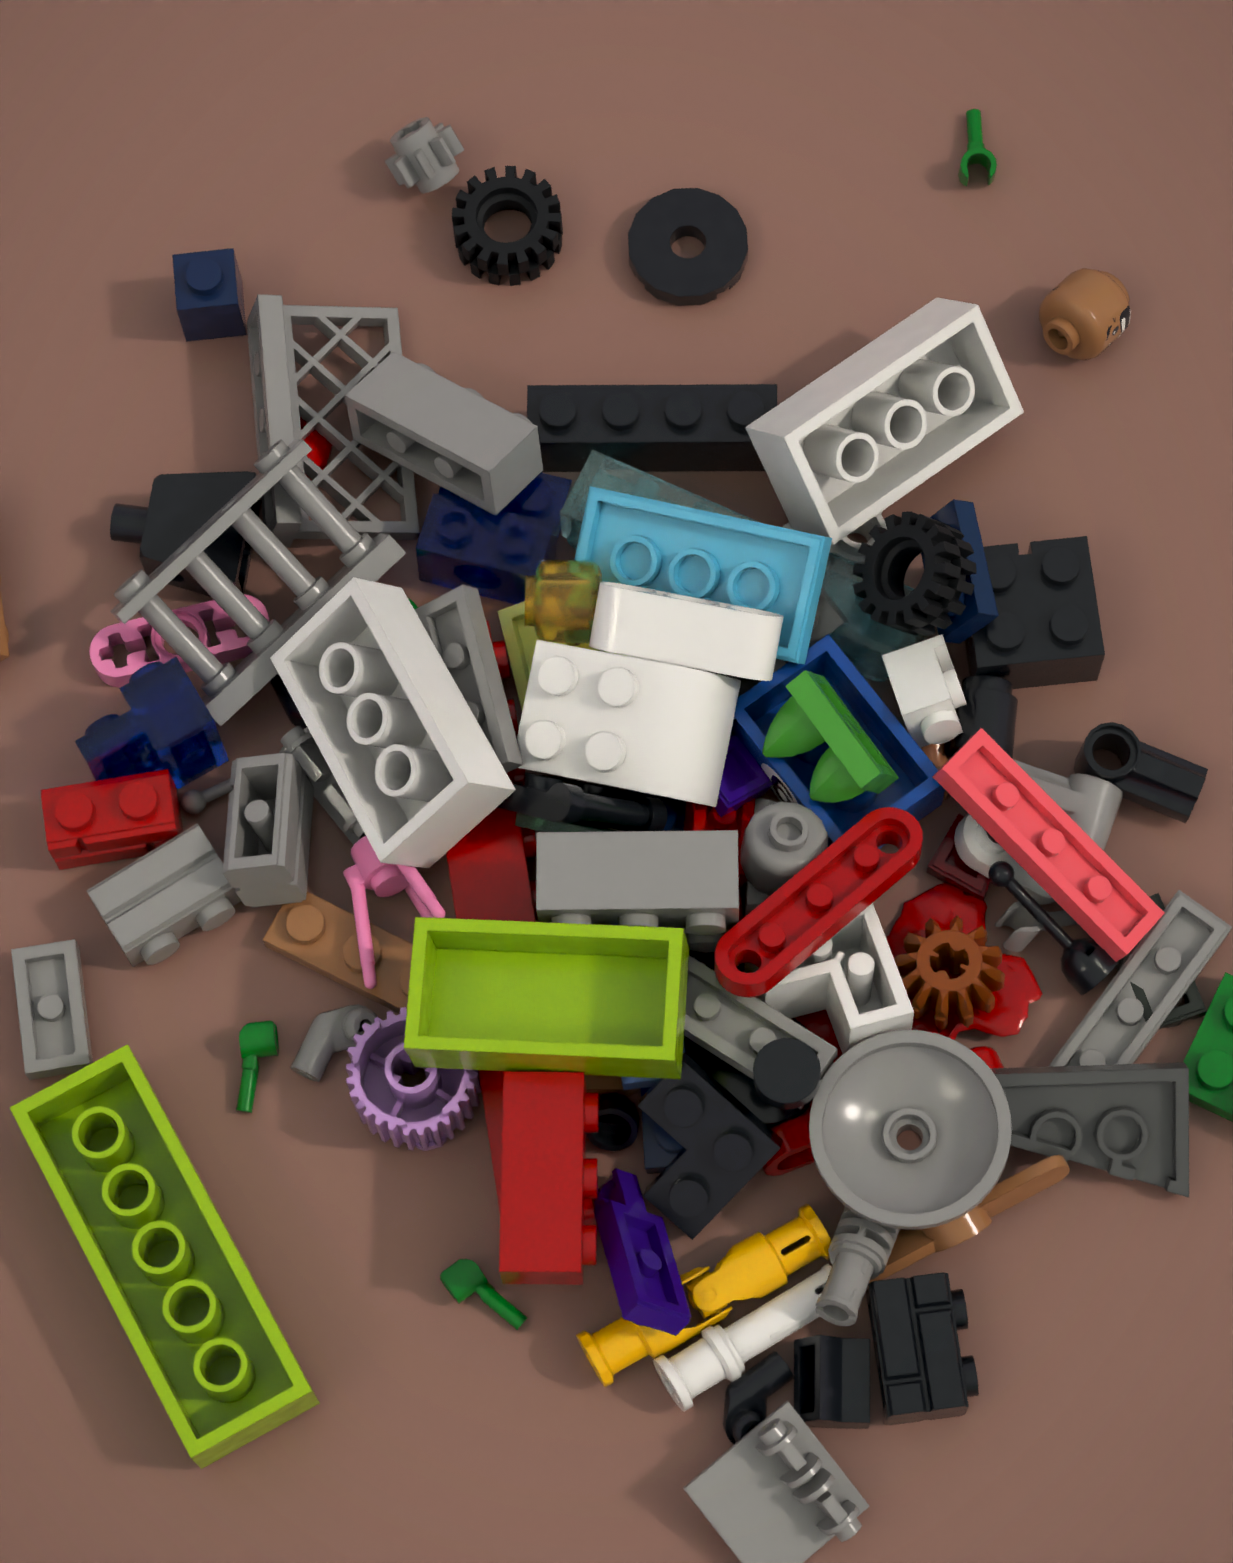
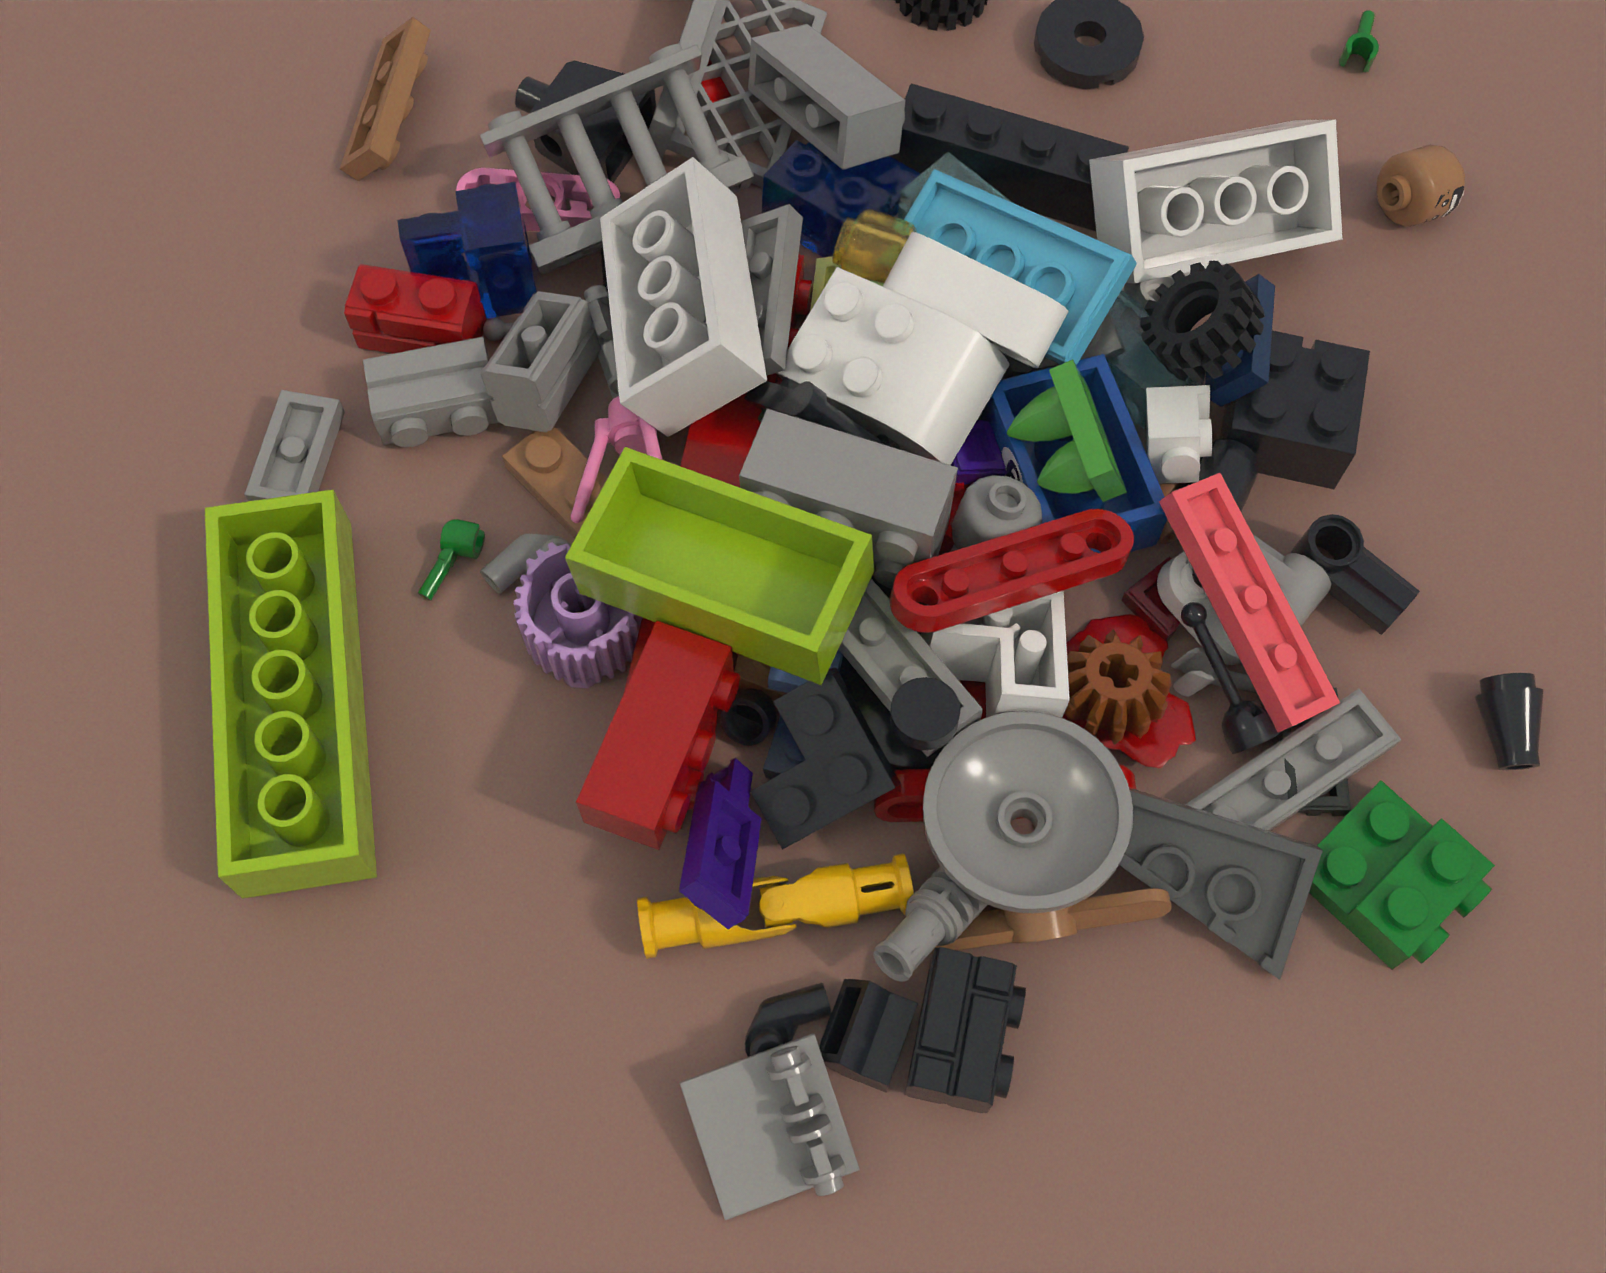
camera: 15 degrees right, 5 degrees down
(466, 1278) = (556, 811): green hand -> none
(724, 1351) = (772, 964): white pin -> none

